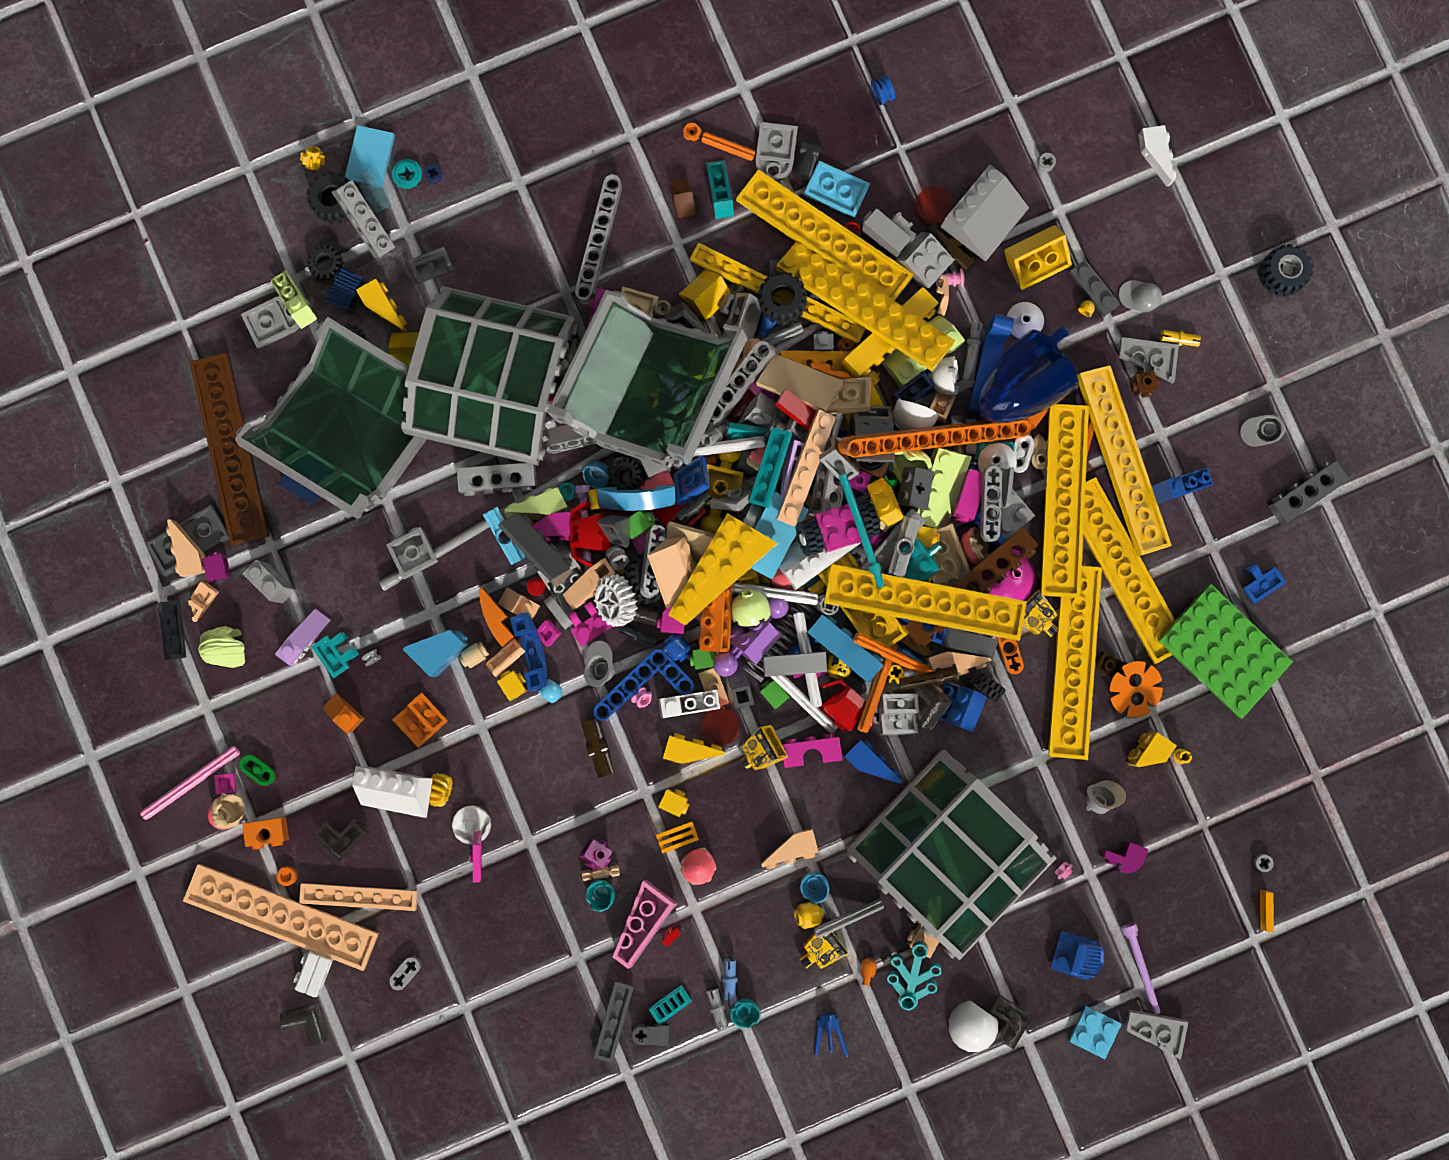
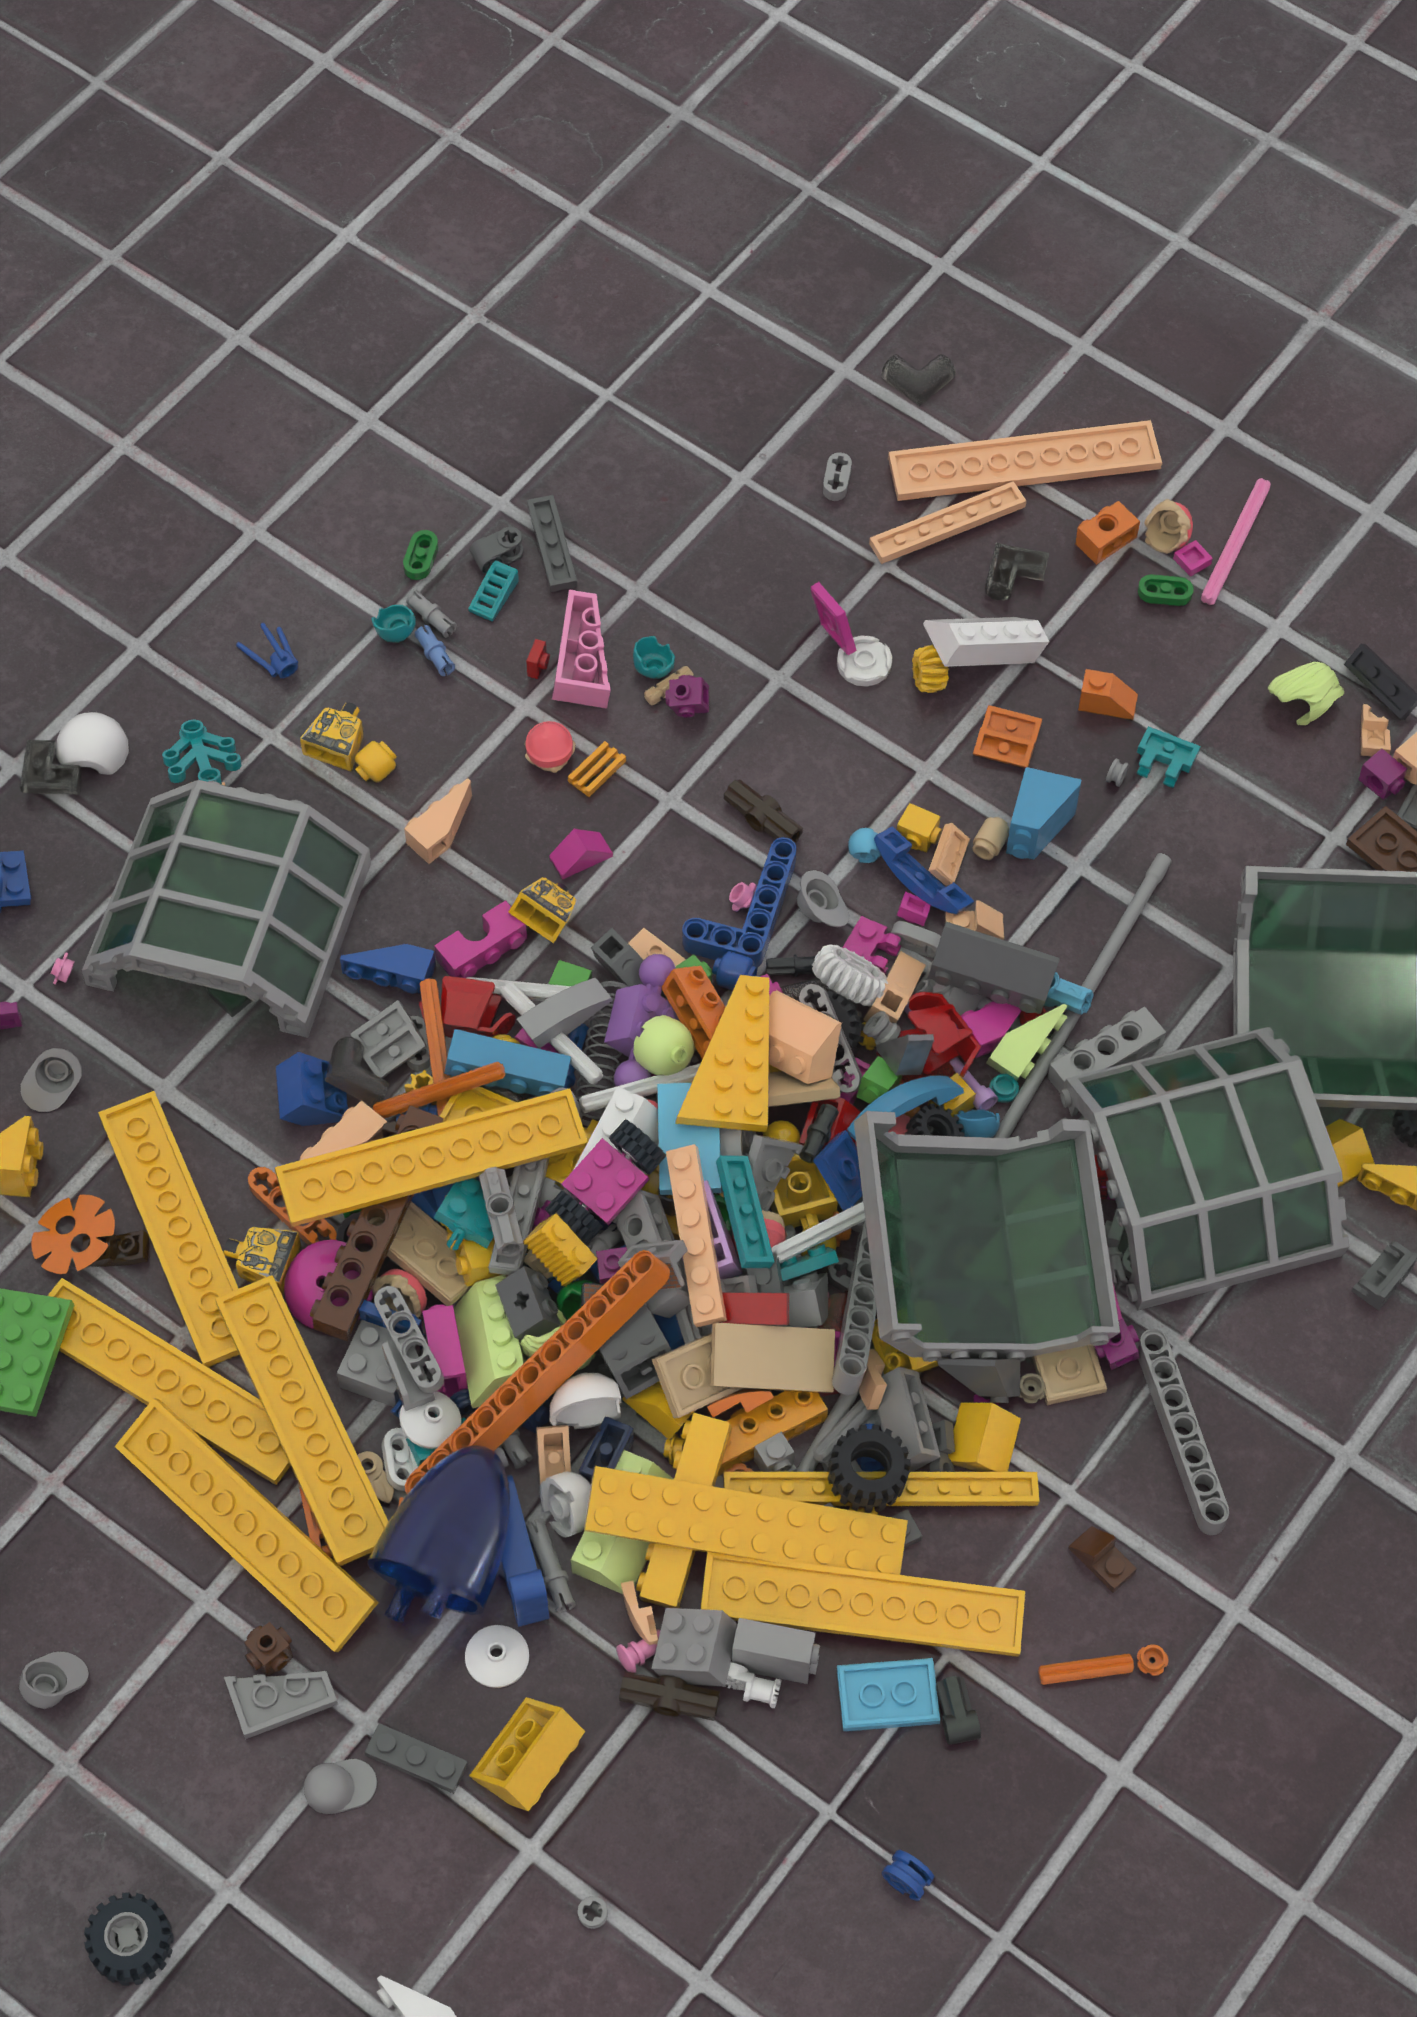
camera: 145 degrees right, 25 degrees down
(268, 581) = (1304, 781): light grey brick -> none
(286, 875) = (1049, 505): orange tile -> none
(302, 638) = (1217, 751): lavender slope -> none
(313, 973) = (944, 420): white brick -> none
(412, 552) = (1152, 909): light grey plate -> none
(495, 617) = (994, 891): orange slope -> none
(674, 802) = (625, 800): yellow brick -> none
(685, 751) = (644, 864): yellow slope -> none
(688, 704) = (666, 921): white slope -> none
(703, 1060) = (418, 556): none -> green plate
(715, 435) = (848, 1240): light grey pin -> none
(719, 782) = (579, 851): none -> dark pink slope
(720, 189) = (1057, 1595): teal slope -> none
(720, 726) = (620, 911): clear red tile -> none
(776, 149) = (1013, 1704): light grey tile -> none
(814, 887) = (385, 794): dark azure hair -> none
(848, 918) = (328, 767): light grey axle -> none
(854, 228) = (830, 1645): red plate -> none
(868, 970) = (263, 741): orange cylinder -> none
(874, 566) = (529, 1159): teal bar -> none
(934, 205) = (728, 1750): clear red tile -> none
(939, 675) = (362, 1099): dark brown pin -> none
(986, 213) = (641, 1767): light grey slope -> none
(987, 686) = (286, 1128): black tyre -> none
(1086, 308) = (412, 1718): yellow hinge -> none
(1180, 338) = (246, 1750): yellow pin -> none
(1182, 485) = (138, 1538): blue slope -> none

